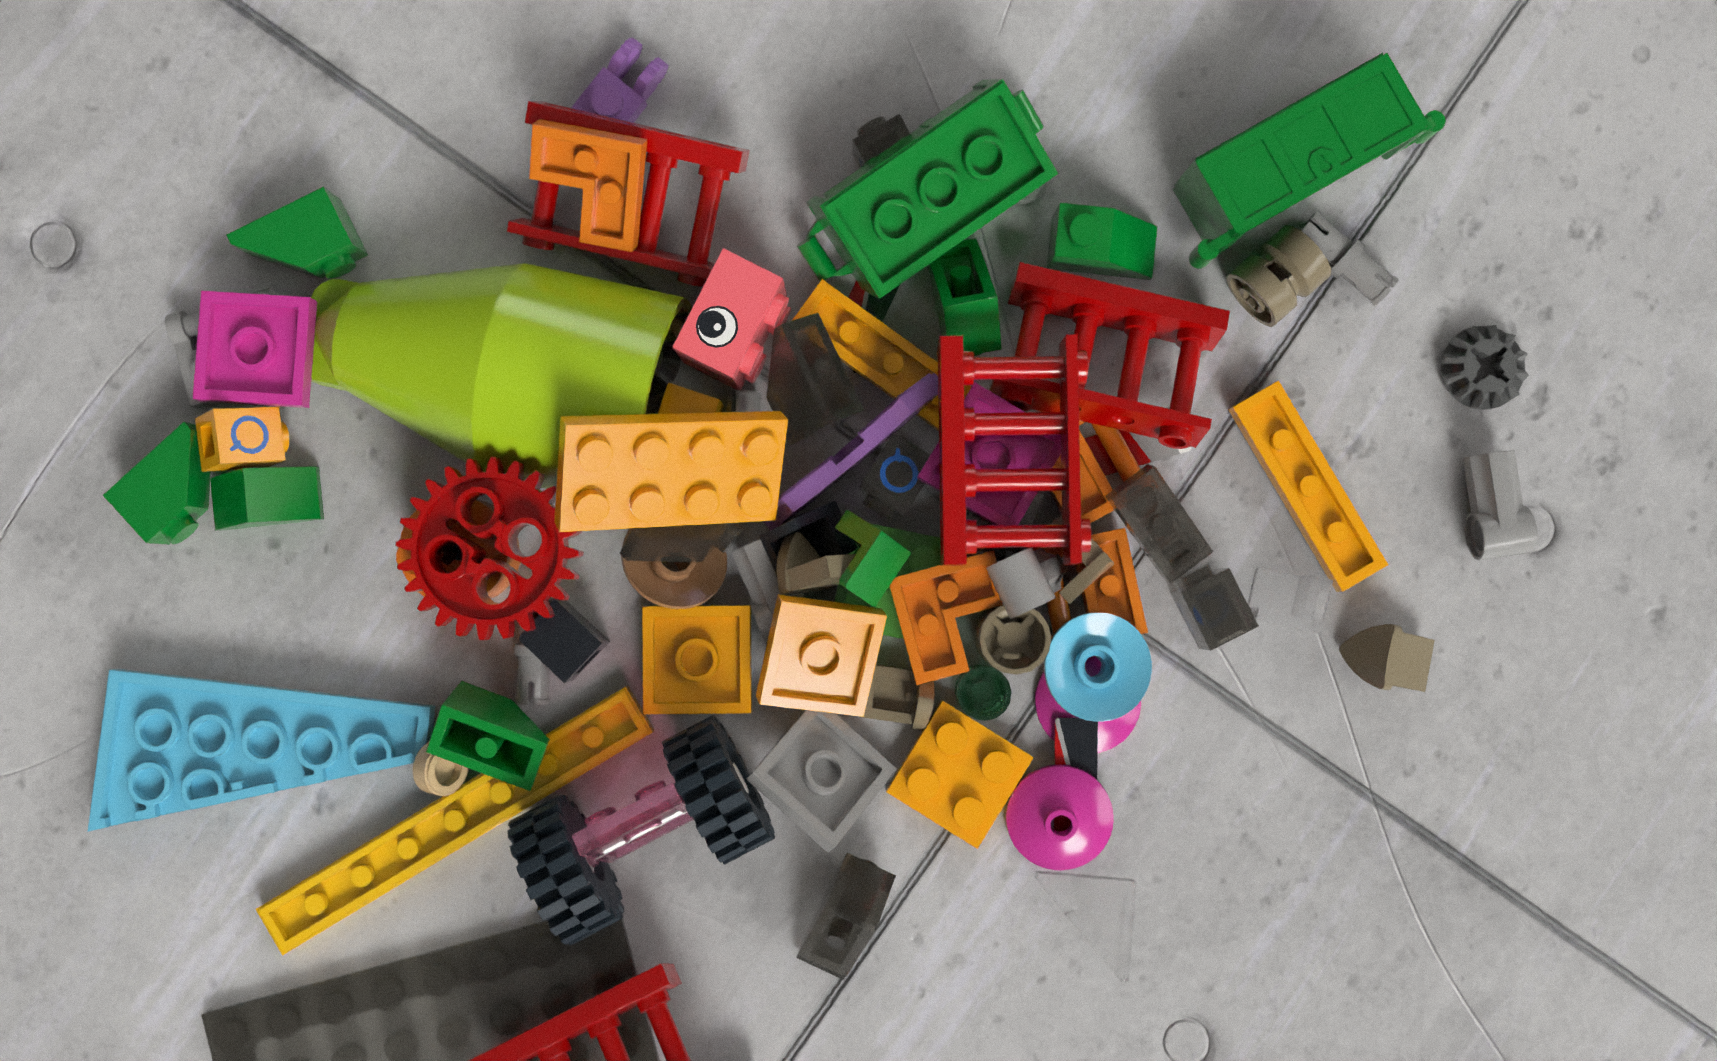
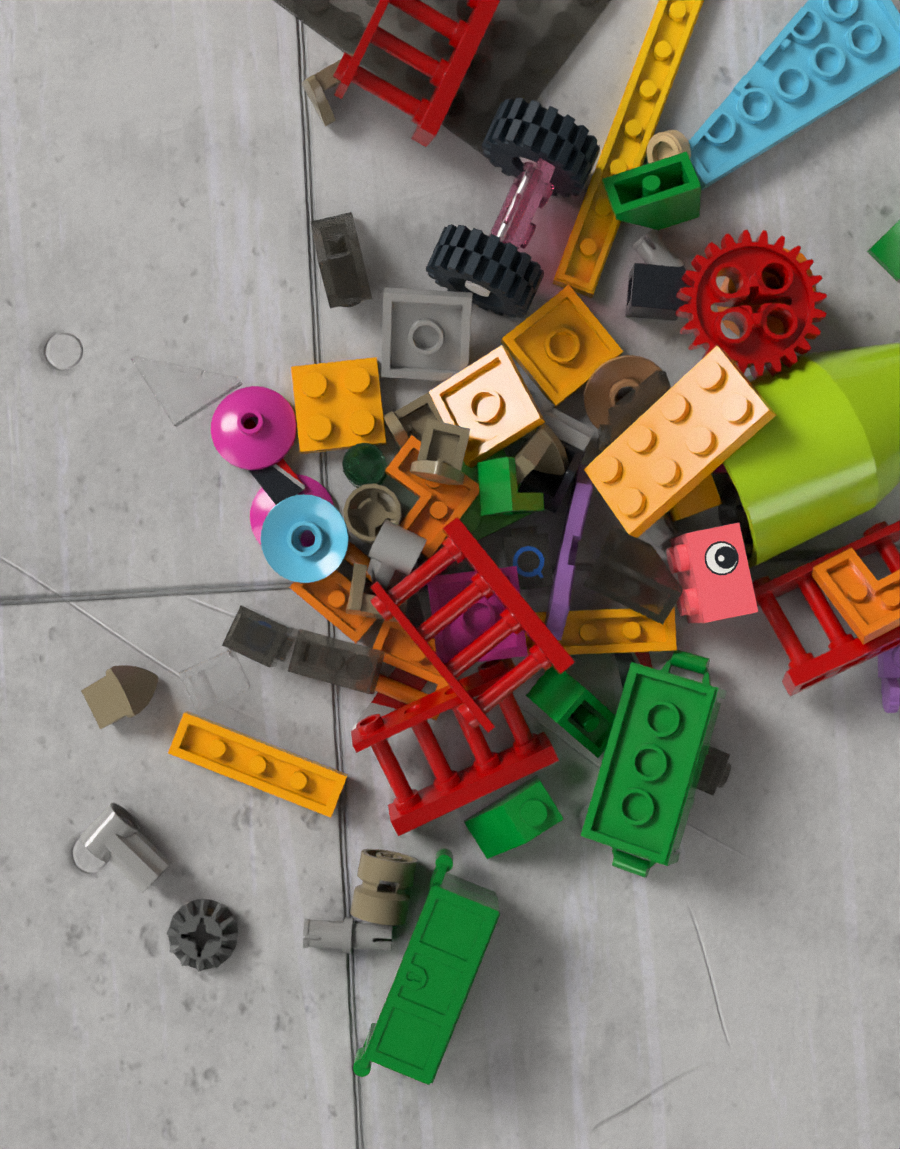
camera: 145 degrees right, 0 degrees up
(902, 643) = (441, 453): none -> dark tan tile

